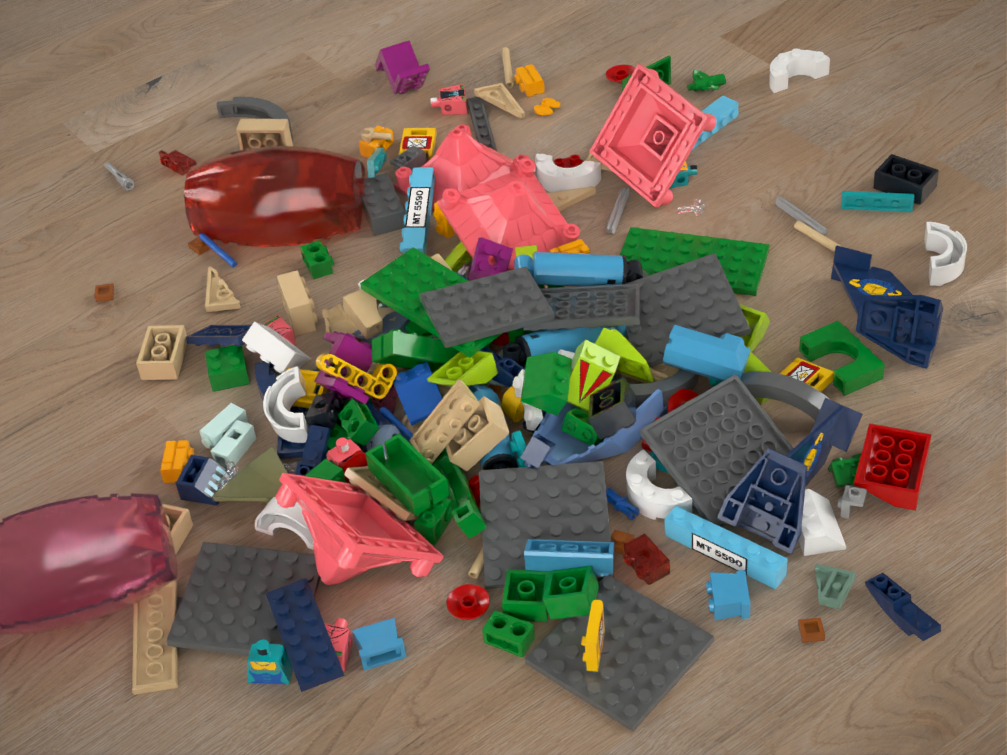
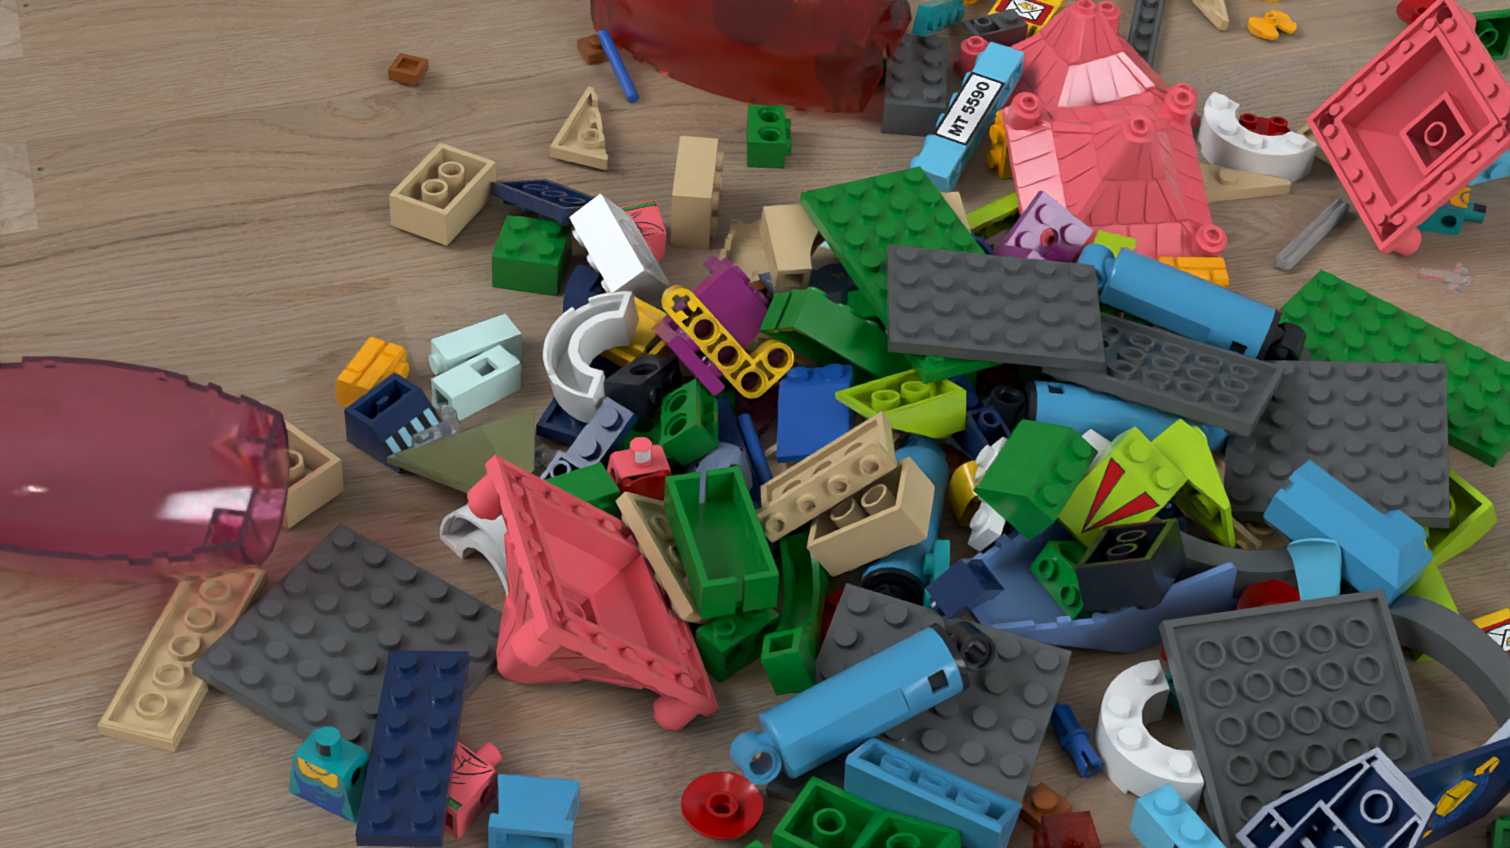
camera: 15 degrees right, 0 degrees up
(515, 524) = (862, 702): none -> dark azure piece
(698, 376) = (1316, 567): none -> medium azure piece

